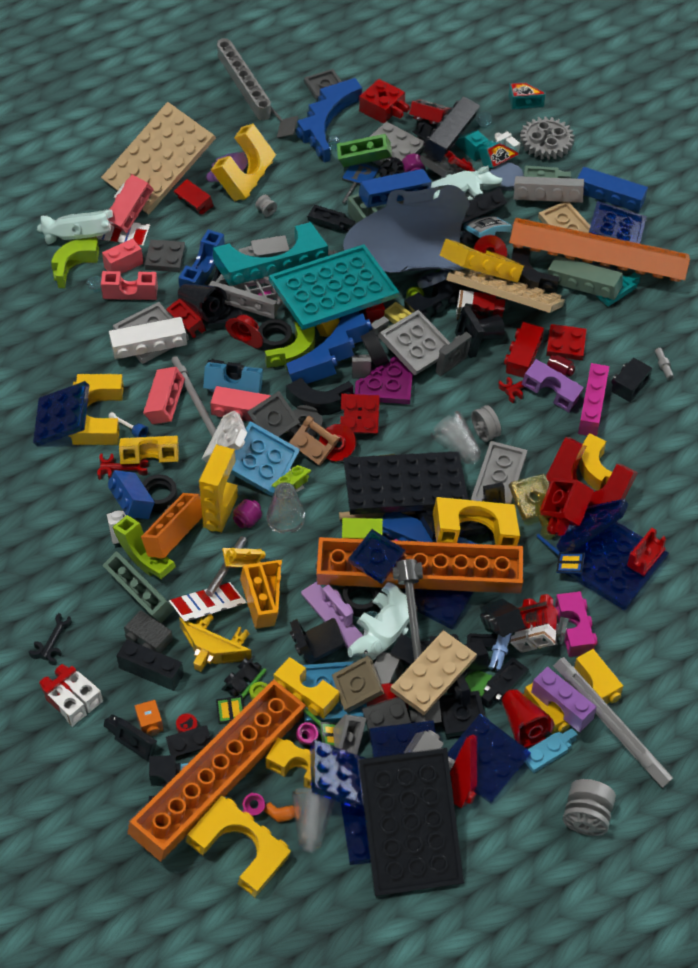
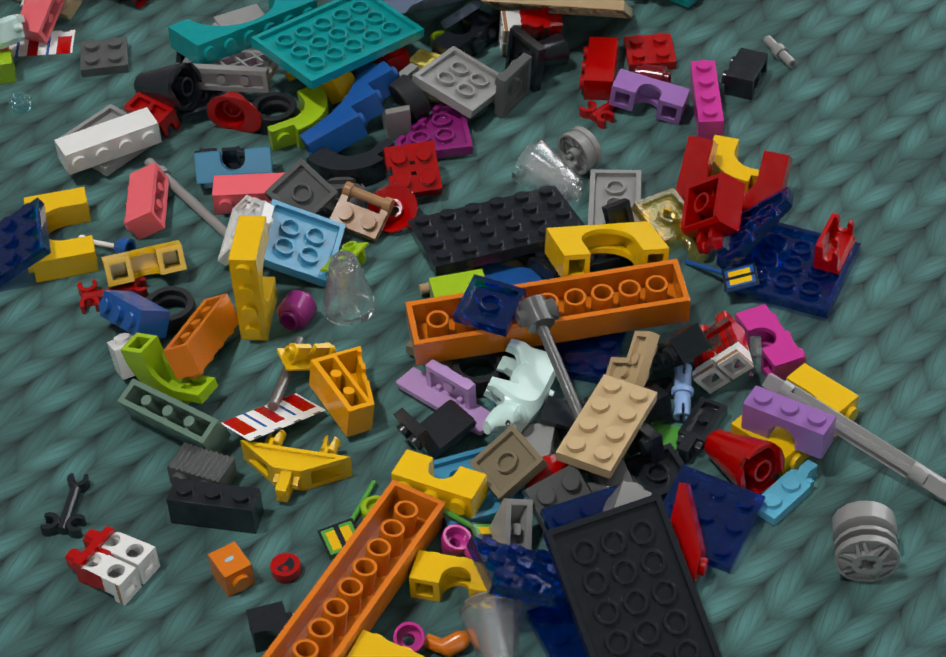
camera: 10 degrees left, 10 degrees down
(115, 287) = (49, 99): coral arch -> none
(123, 257) = (49, 66): coral brick -> none
(131, 736) = (213, 596): black hinge -> none
(188, 741) = (294, 584): black hinge -> none
(204, 262) = (159, 48): blue arch -> none
(235, 681) = (338, 502): black hinge -> none
(467, 626) = (638, 361): none -> tan plate

